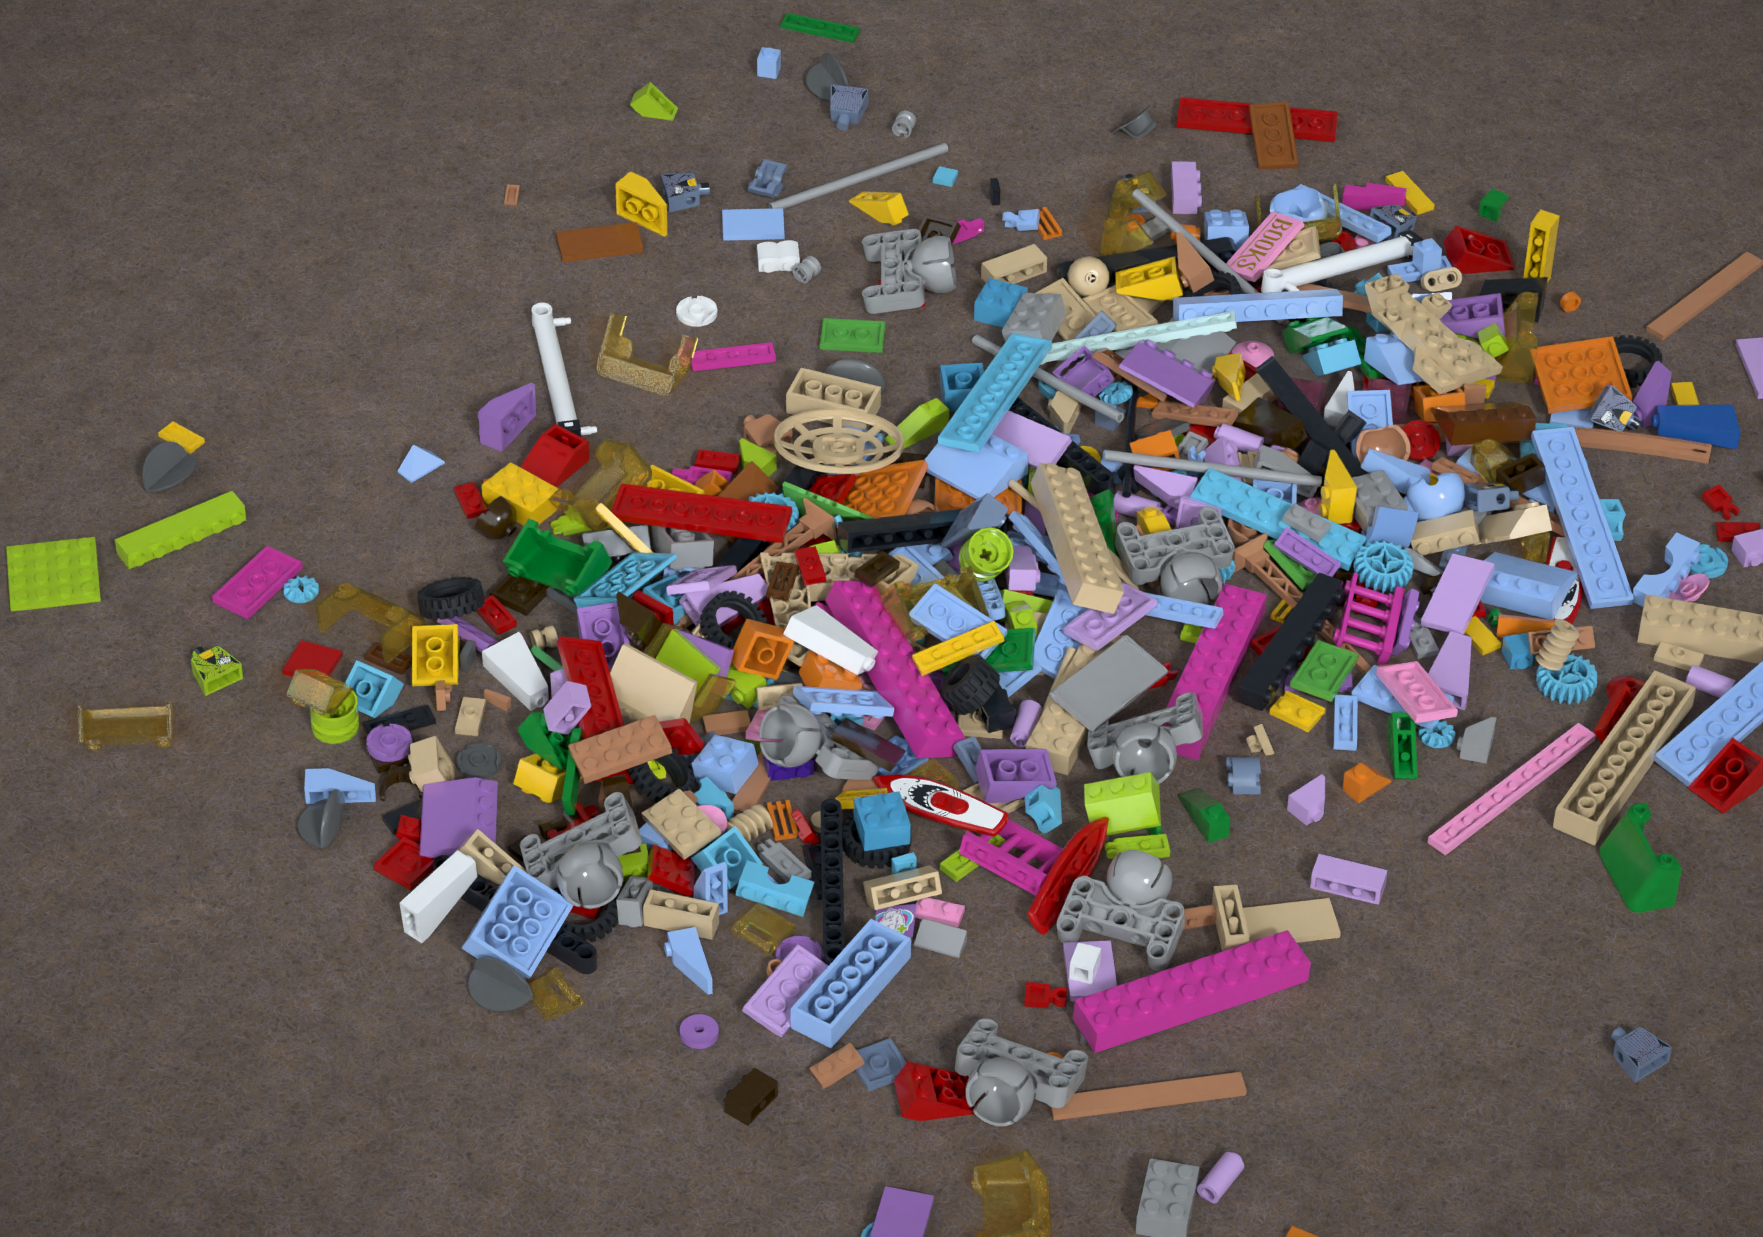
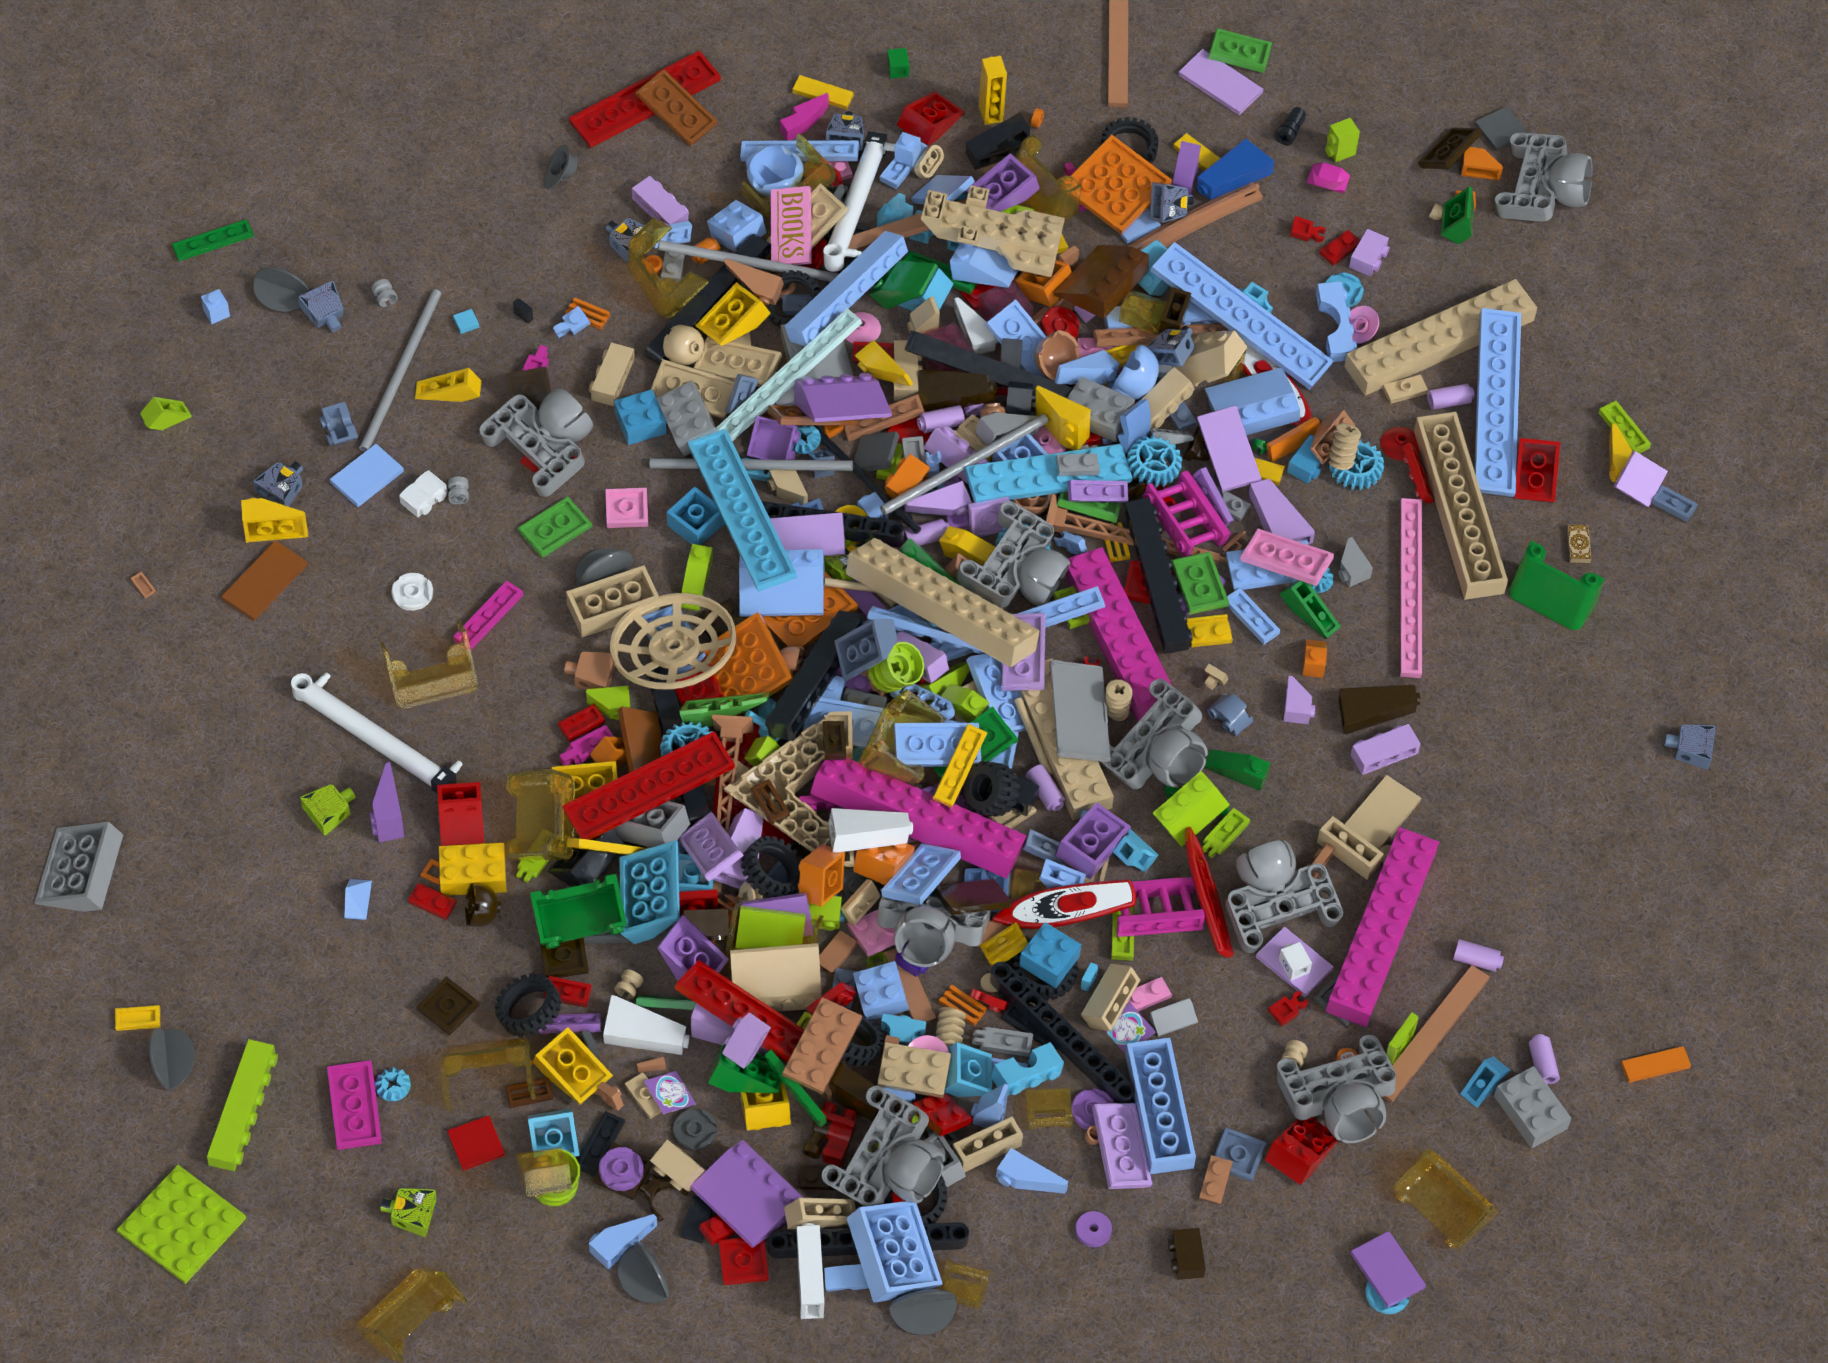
camera: 45 degrees left, 15 degrees up
(256, 326) = (79, 867): none -> light grey slope
(399, 567) = (448, 1005): none -> dark brown plate
(461, 923) = (845, 1277): none -> light blue slope
(467, 396) = (327, 807): none -> lime torso
(488, 724) = (669, 1092): none -> sticker
(810, 565) = (777, 772): red plate -> none
(921, 354) = (626, 507): none -> bright pink plate
(958, 777) = (1059, 875): none -> light blue slope
(1010, 1026) = (1296, 1051): none -> tan wheel
(1107, 1071) = (1402, 1038): none -> lime tile
(1153, 695) = (1118, 699): none -> tan piece
(1154, 1146) = (1484, 1081): none -> dark azure slope
(1175, 208) = (679, 233): none -> light blue plate
(1250, 581) = (1073, 543): none -> light blue plate
(1253, 1068) = (1478, 955): none -> lavender brick
(1308, 367) = (924, 317): none -> tan slope
(1378, 845) = (1375, 705): none -> dark brown slope
(1493, 340) = (1038, 199): lime brick -> none
(1709, 853) = (1579, 543): none -> tile

